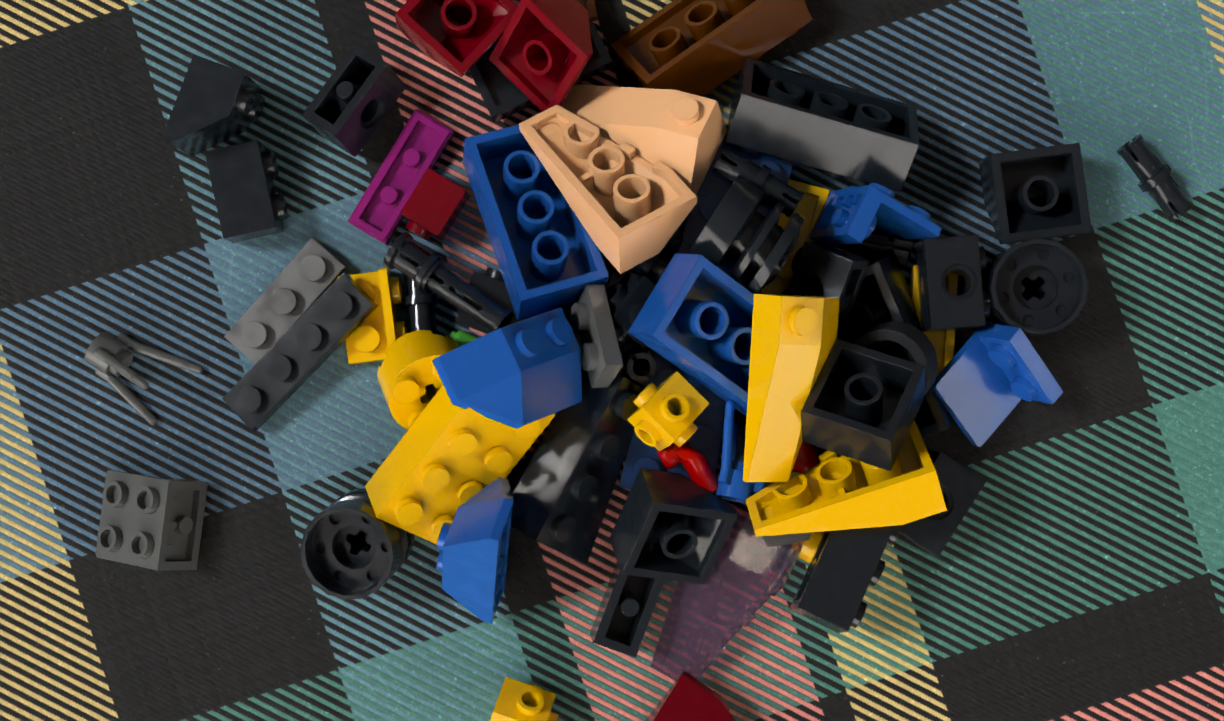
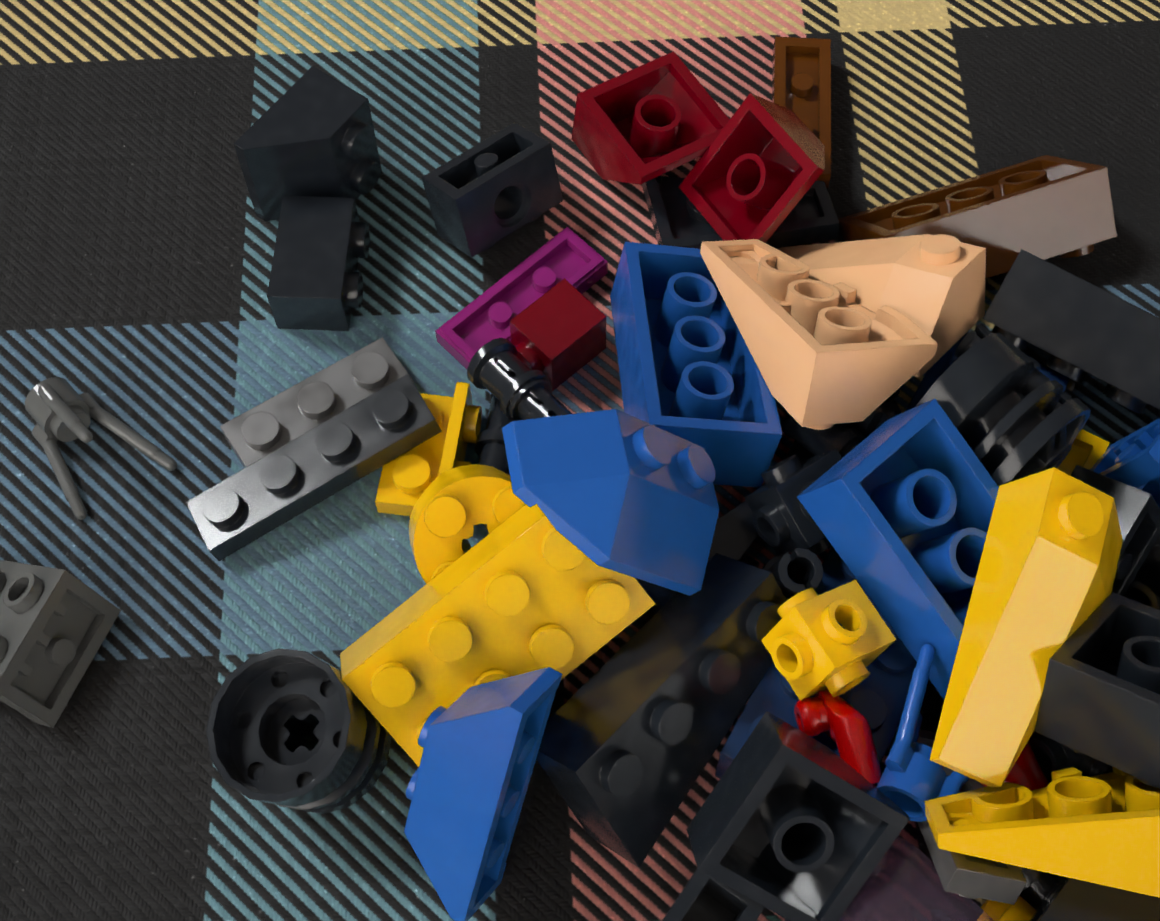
camera: 15 degrees right, 25 degrees down
(597, 335) = (747, 511): dark grey plate -> none

